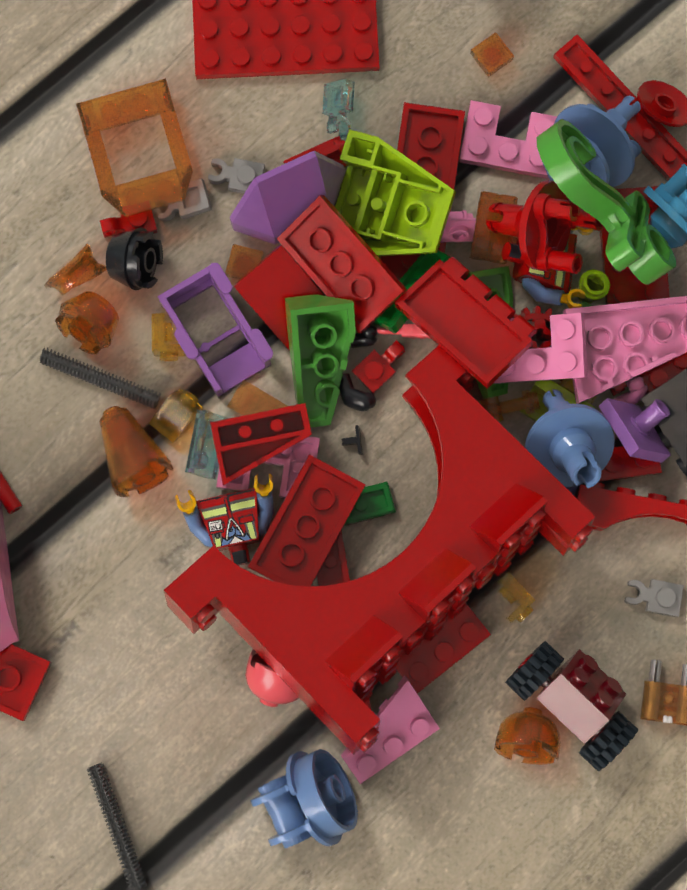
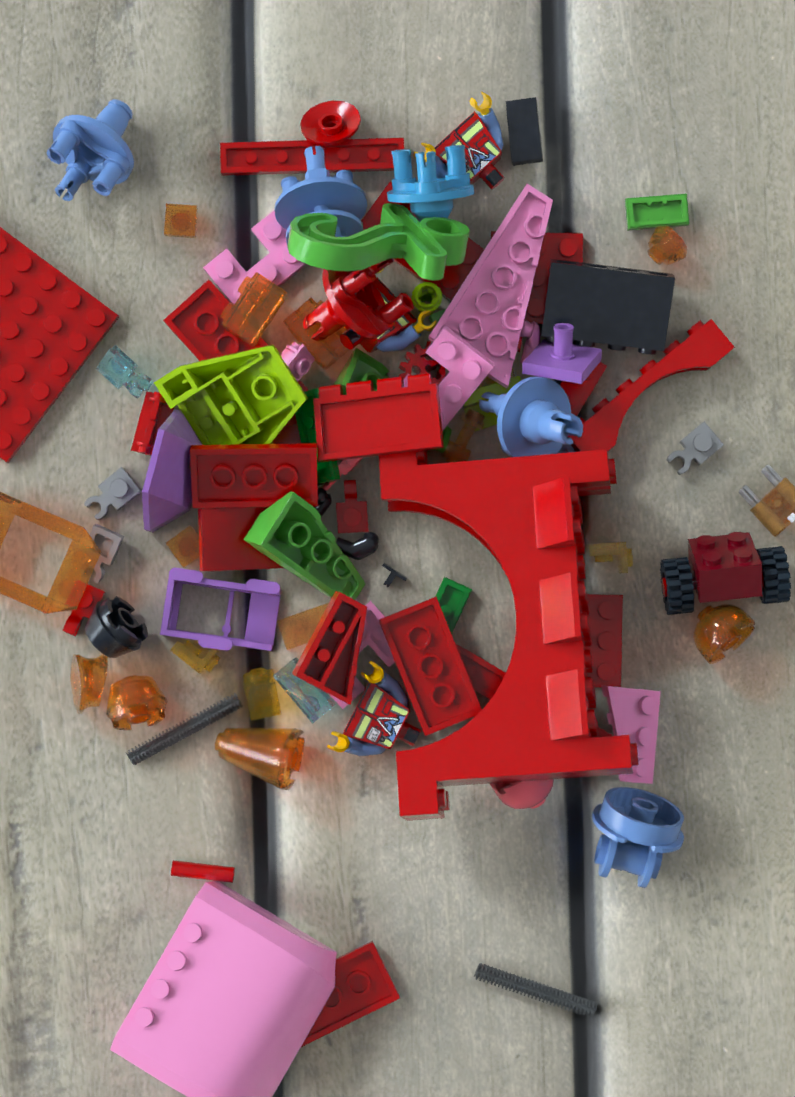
camera: 55 degrees left, 5 degrees up
(471, 160) = (253, 309): none -> clear orange brick

